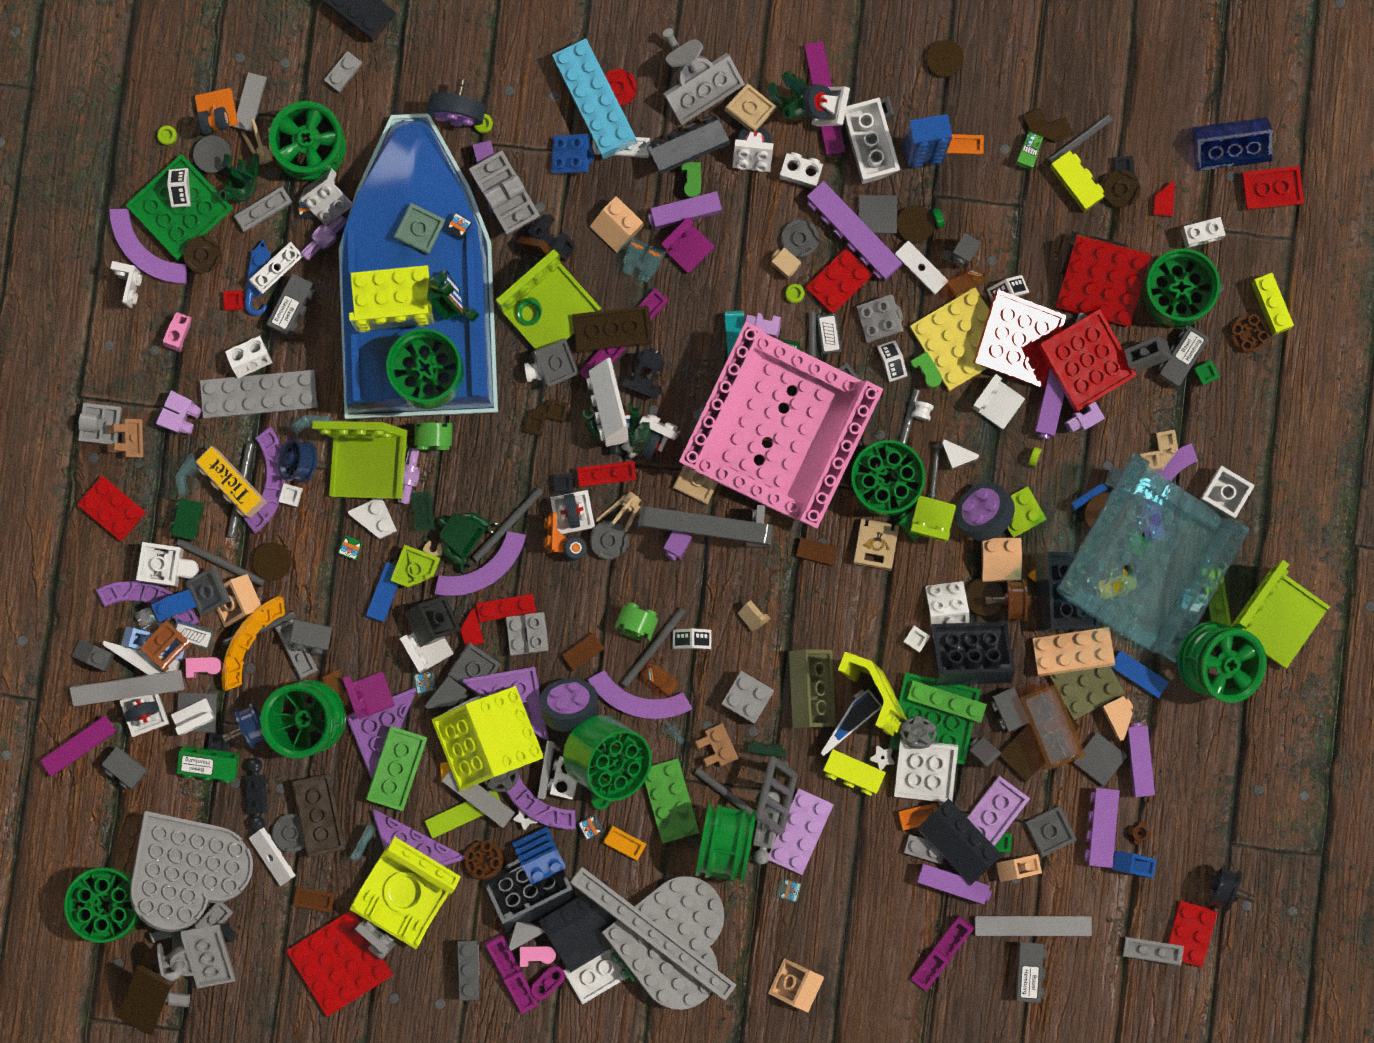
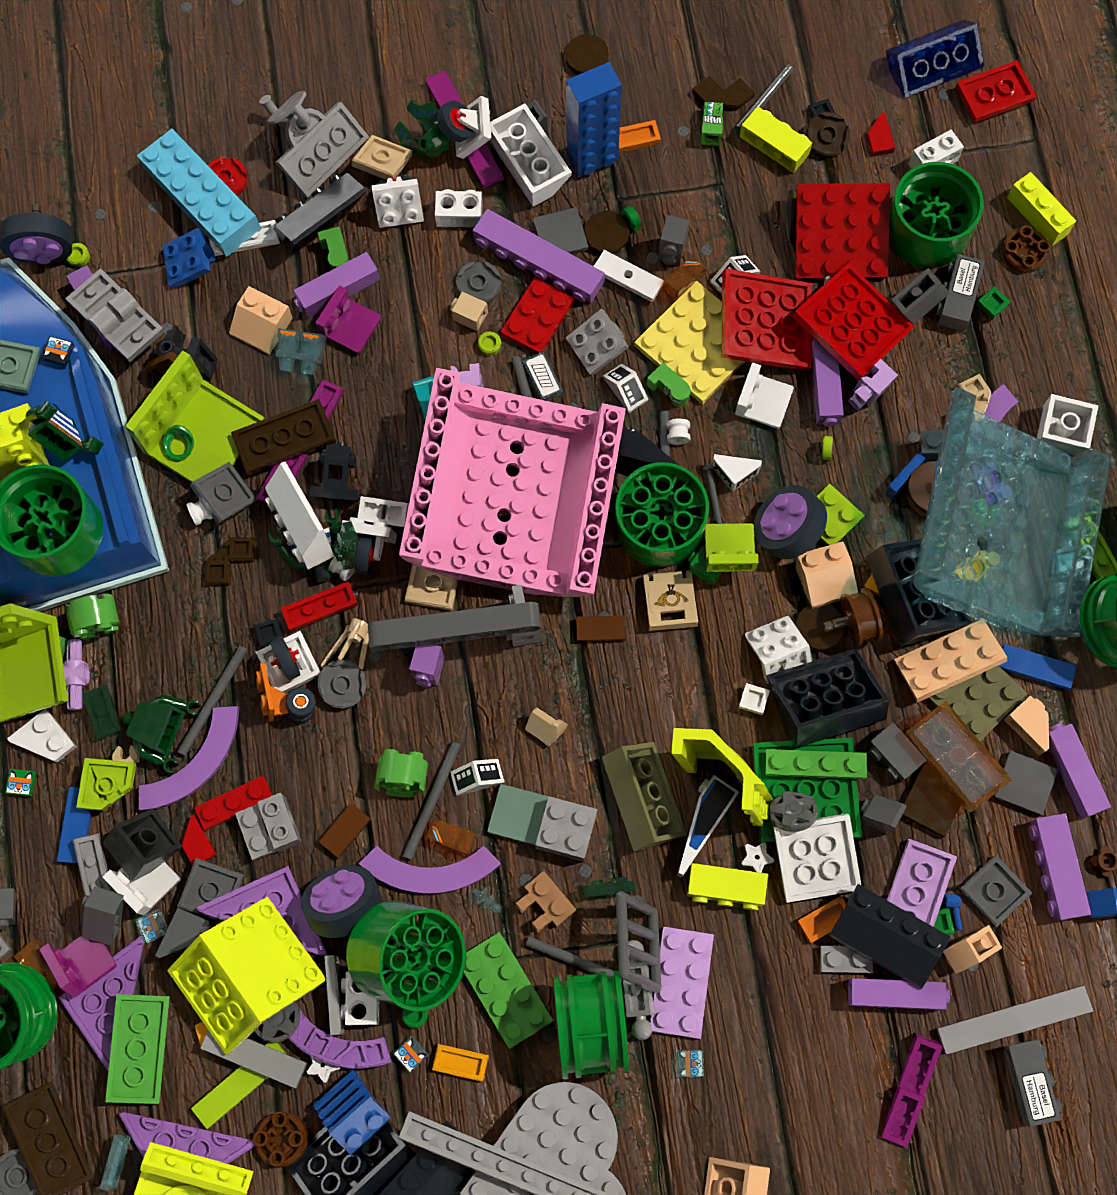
camera: 15 degrees left, 10 degrees down
(391, 632) = (91, 862): none -> light grey tile
(392, 666) = (101, 915): none -> dark grey brick
(676, 414) = (383, 511): none -> white brick
(714, 676) = (517, 814): none -> sand green tile
(888, 421) = (638, 450): none -> black slope
(1017, 830) = (954, 901): none -> blue hand

